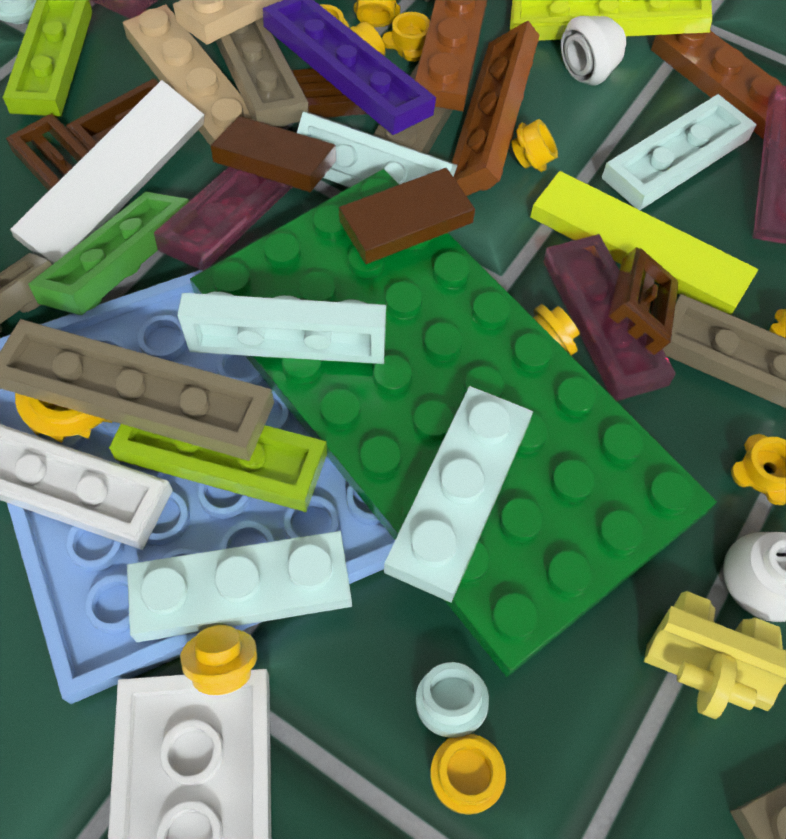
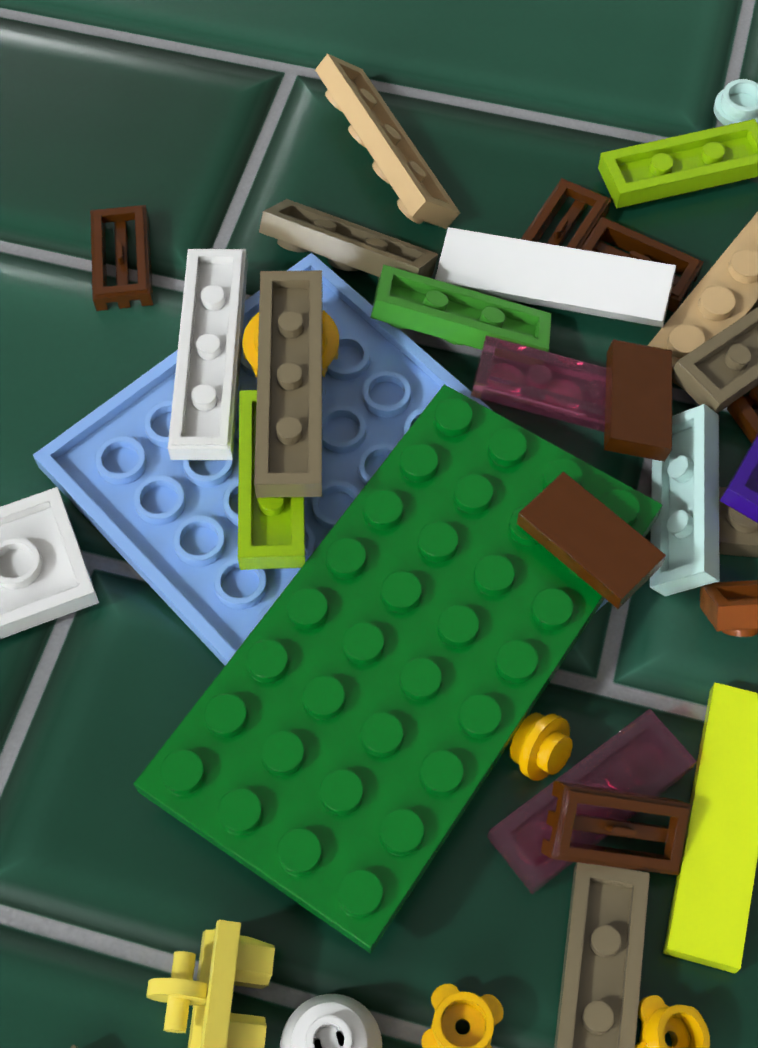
camera: 75 degrees right, 0 degrees up
(219, 659) = (86, 549): yellow plate -> none
(237, 586) = (157, 544): light aqua plate -> none
(283, 327) = (398, 474): light aqua plate -> none
(452, 700) = (112, 756): light aqua plate -> none
(458, 494) = (285, 682): light aqua plate -> none
(468, 774) = (52, 789): yellow plate -> none

